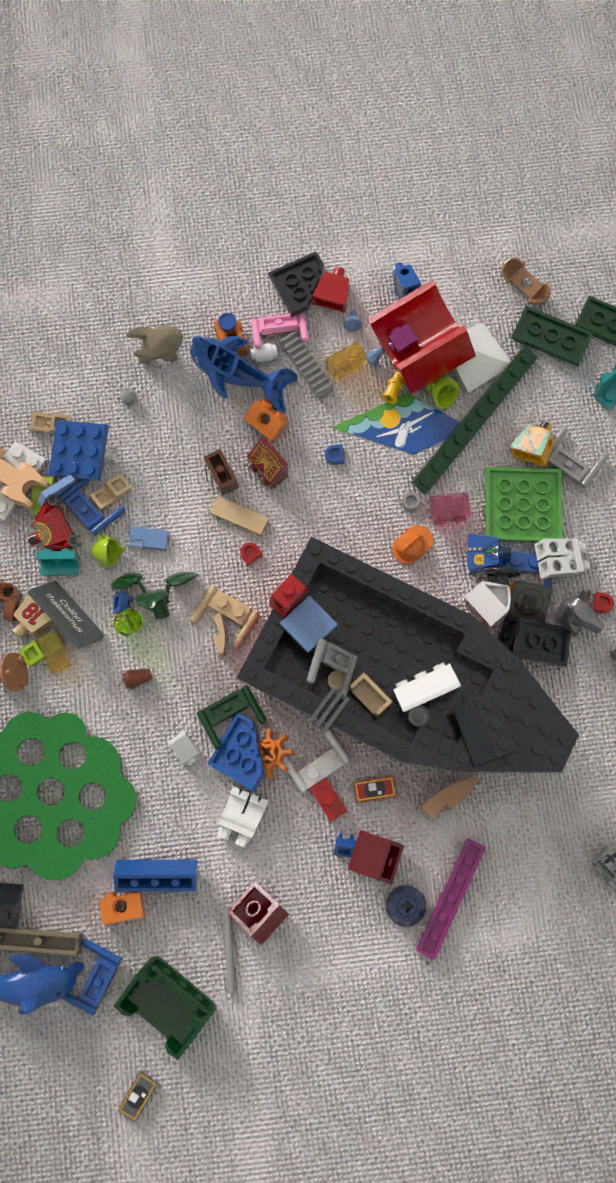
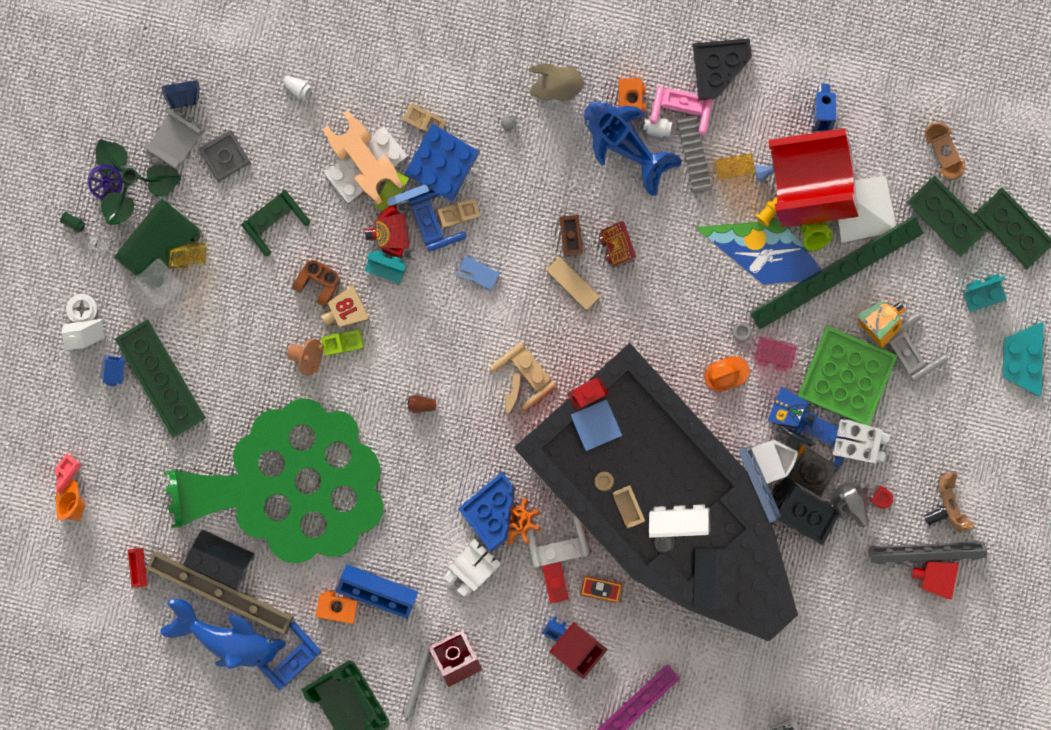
camera: 20 degrees right, 10 degrees up
(53, 651) = (353, 351): clear yellow tile -> none
(66, 614) = (377, 320): dark grey tile -> none
(106, 551) = (434, 272): lime helmet -> none
(120, 602) = (431, 327): blue tile -> none
(127, 622) = (431, 349): clear neon green head -> none
(156, 600) = (464, 343): dark green plant -> none
(184, 748) = (442, 488): white slope -> none
(227, 321) = (632, 84): blue piece -> none
(227, 708) = (494, 464): dark green plate -> none
(250, 553) = (569, 323): red tile -> none
(256, 417) = (624, 194): orange brick -> none
(332, 291) = (750, 86): red torso -> none
(334, 454) = (686, 256): blue tile -> none
(335, 658) = (609, 464): light grey plate -> none
(338, 695) = (571, 518): dark grey tile -> none
(353, 322) = (757, 127): medium blue rock -> none
(402, 339) = (793, 173): magenta brick -> none
(406, 905) = (589, 701): dark blue piece -> none
(448, 797) = (664, 622): medium nougat slope -> none
(461, 598) = (759, 484): none -> sand blue tile

